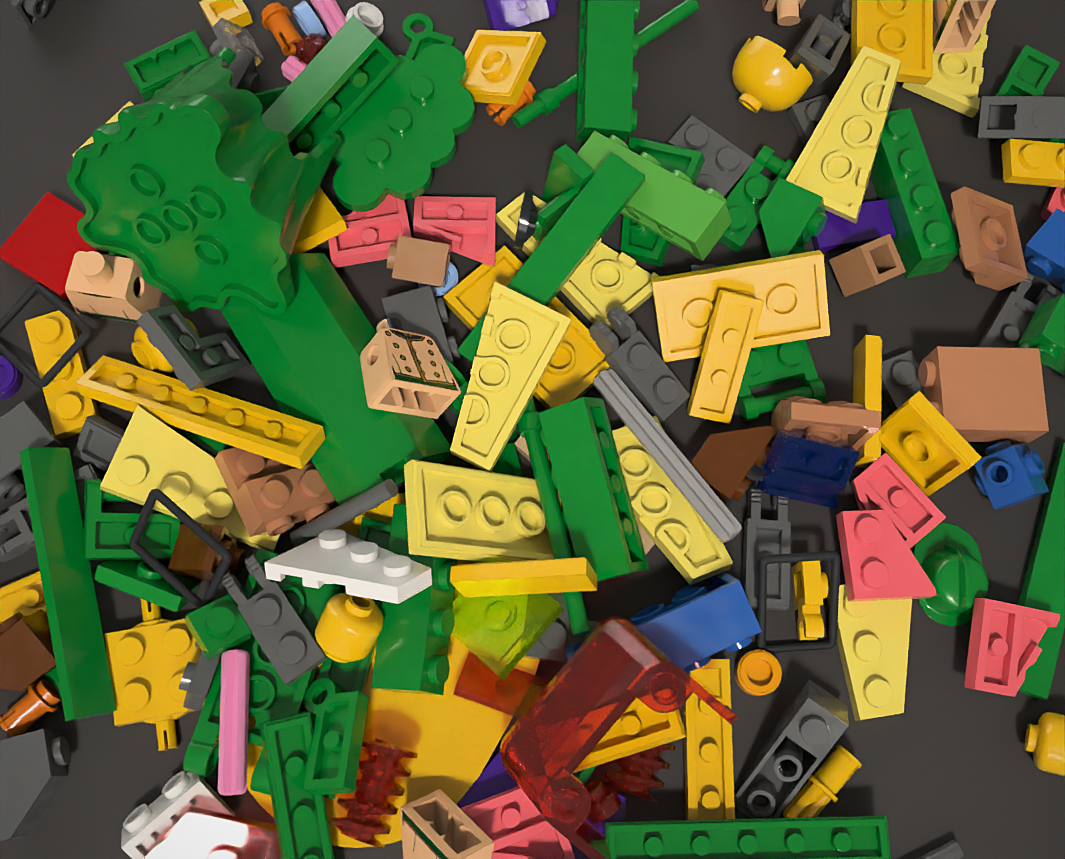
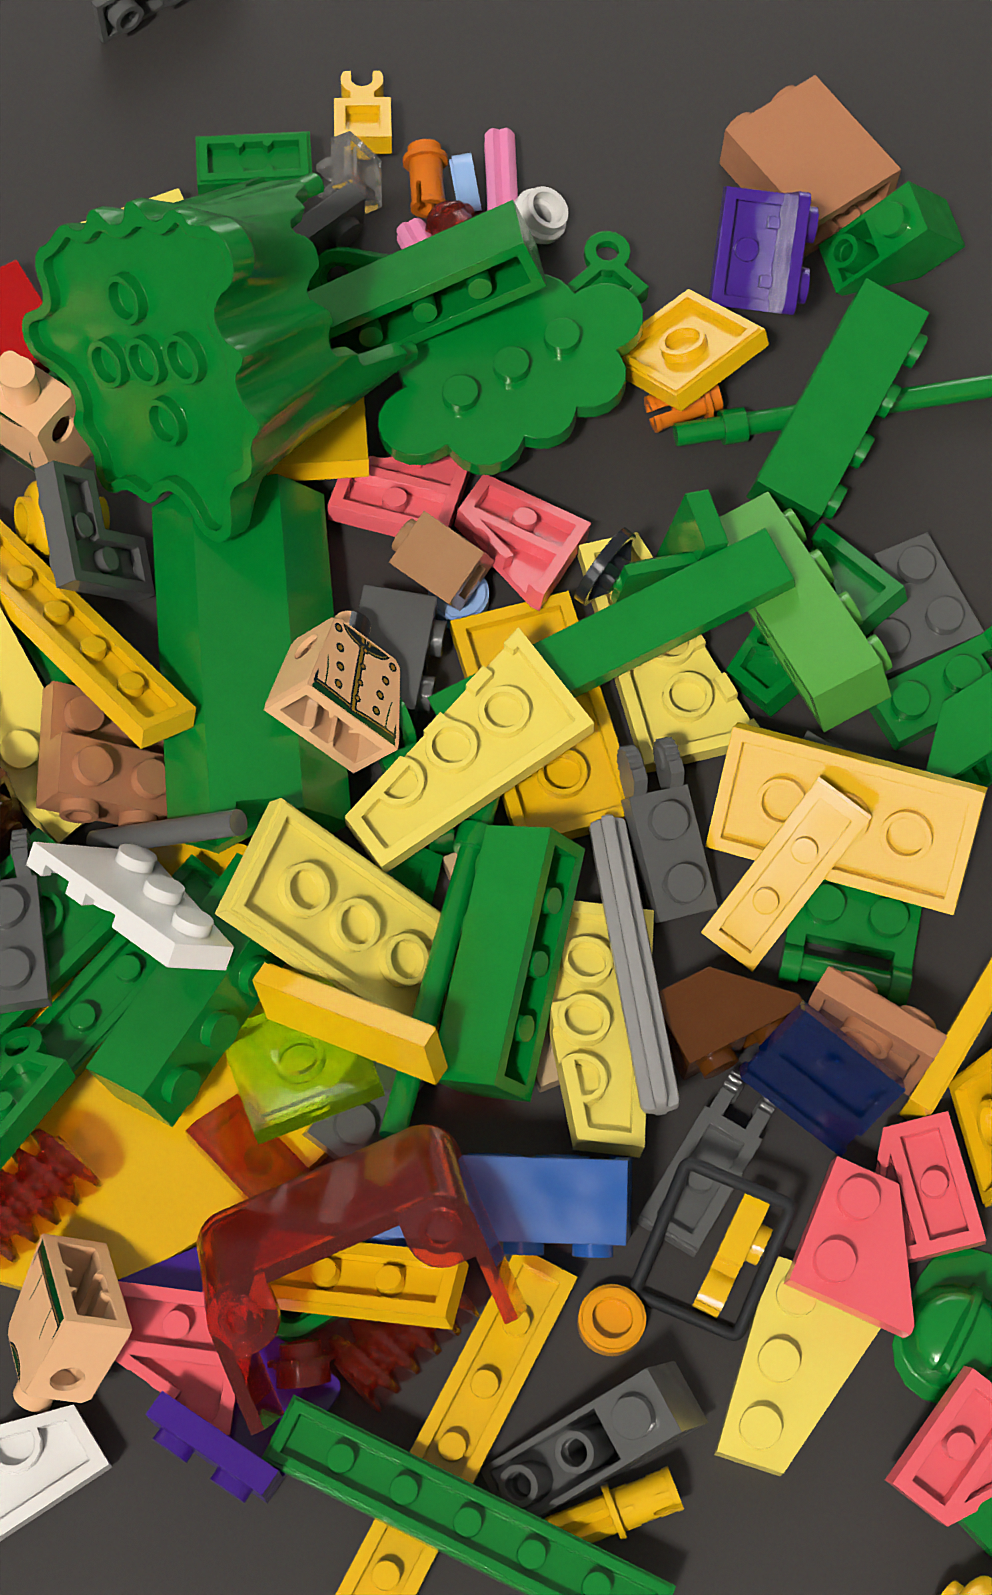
camera: 30 degrees right, 5 degrees down
(348, 627) = (96, 976): yellow head -> none

